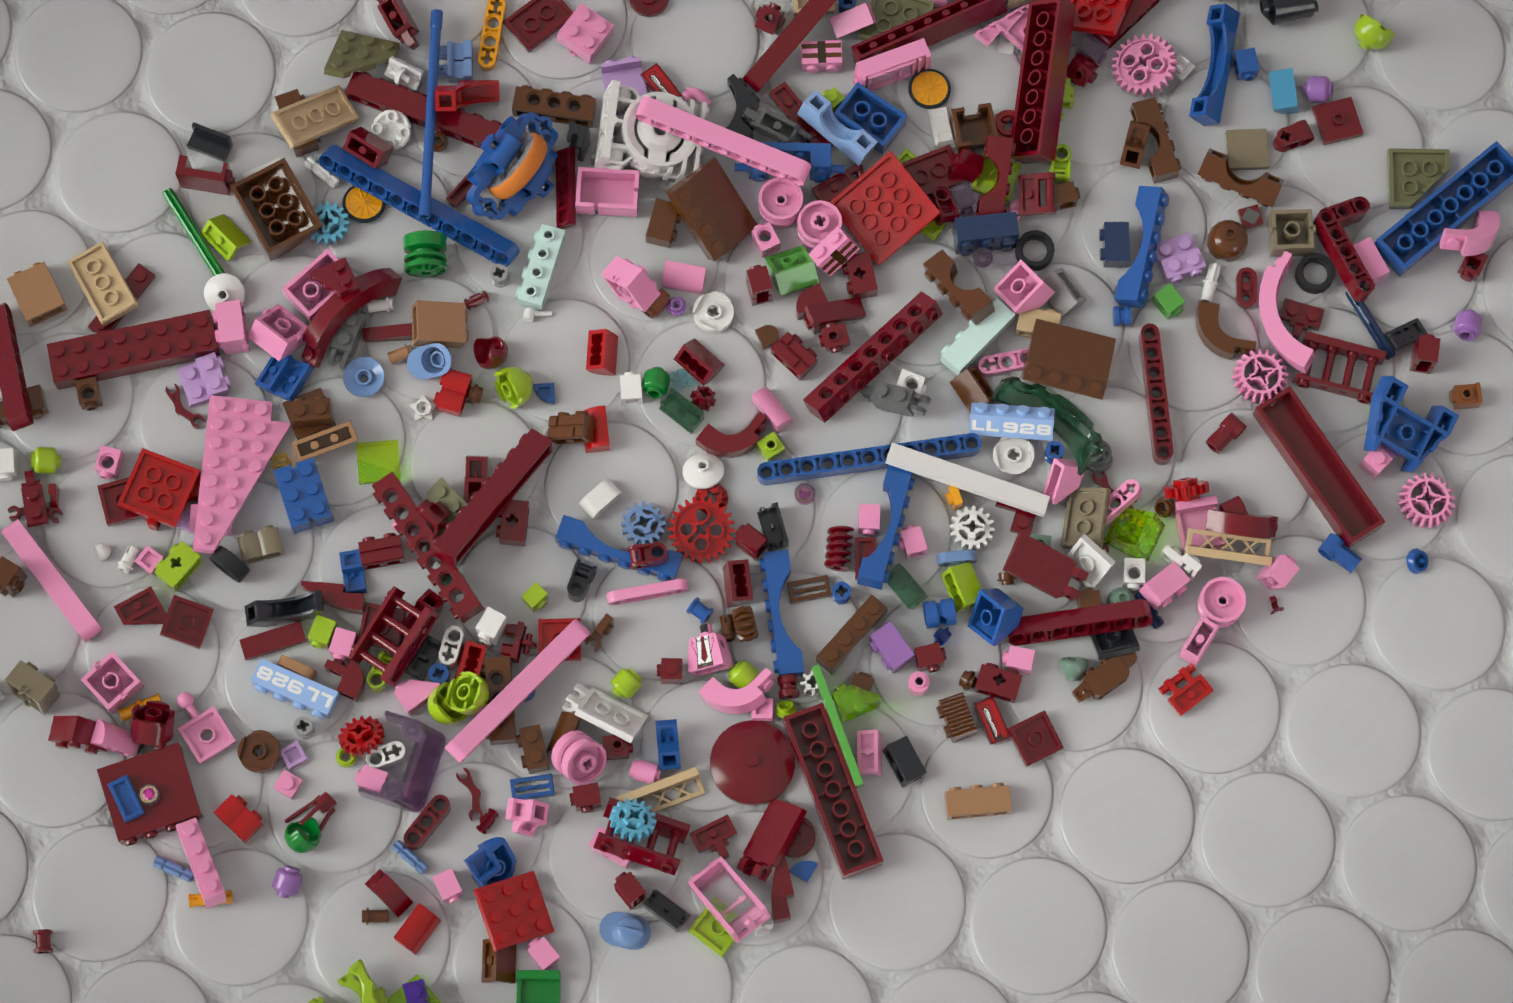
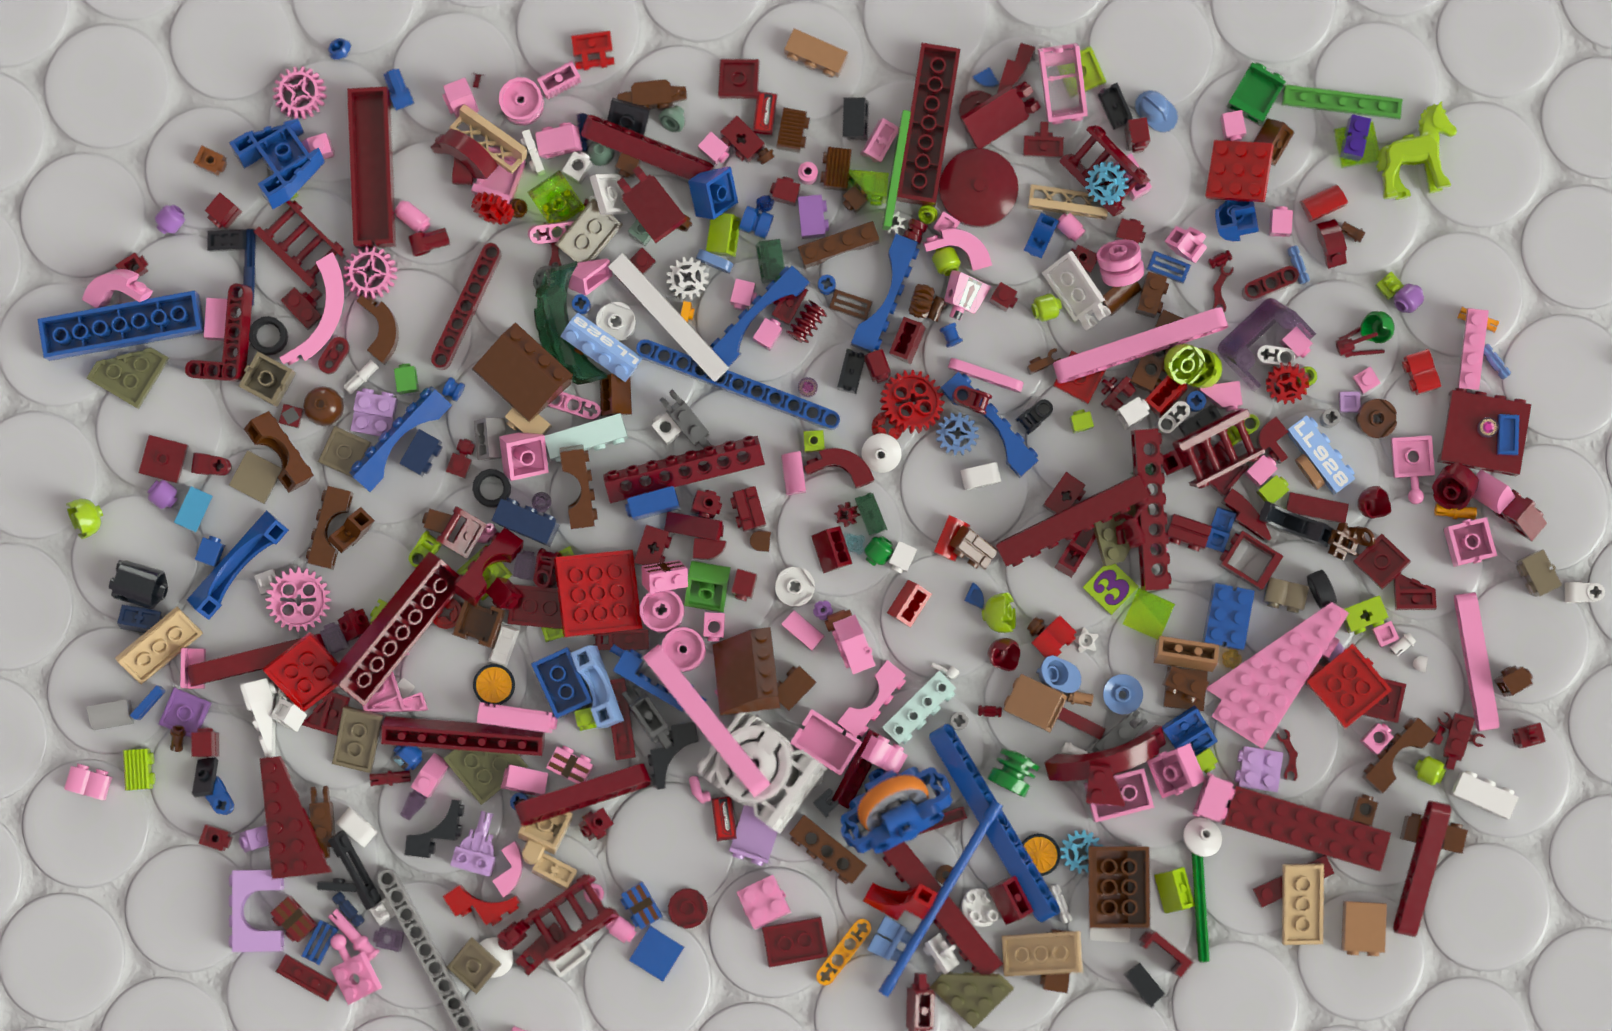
camera: 145 degrees left, 10 degrees up
(75, 483) = (1381, 773): none -> reddish brown arch
(221, 670) = (1374, 502): none -> dark red hair
(234, 624) = (1343, 535): none -> reddish brown piece
(257, 359) = (1206, 760): none -> lime plate
(288, 556) = (1267, 572): none -> dark red window
(312, 886) = (1389, 285): none -> lime tile
(426, 465) = (1110, 587): none -> tile
(549, 208) = (884, 755): none -> bright pink brick
(592, 228) = (888, 679): none -> bright pink arch
(882, 309) = (652, 503): none -> blue brick
(894, 704) = (837, 168): none -> reddish brown brick
(1077, 257) = (459, 464): none -> dark red plate
(1185, 213) = (343, 450): none -> dark tan tile
(1254, 446) = (412, 217): none -> bright pink head

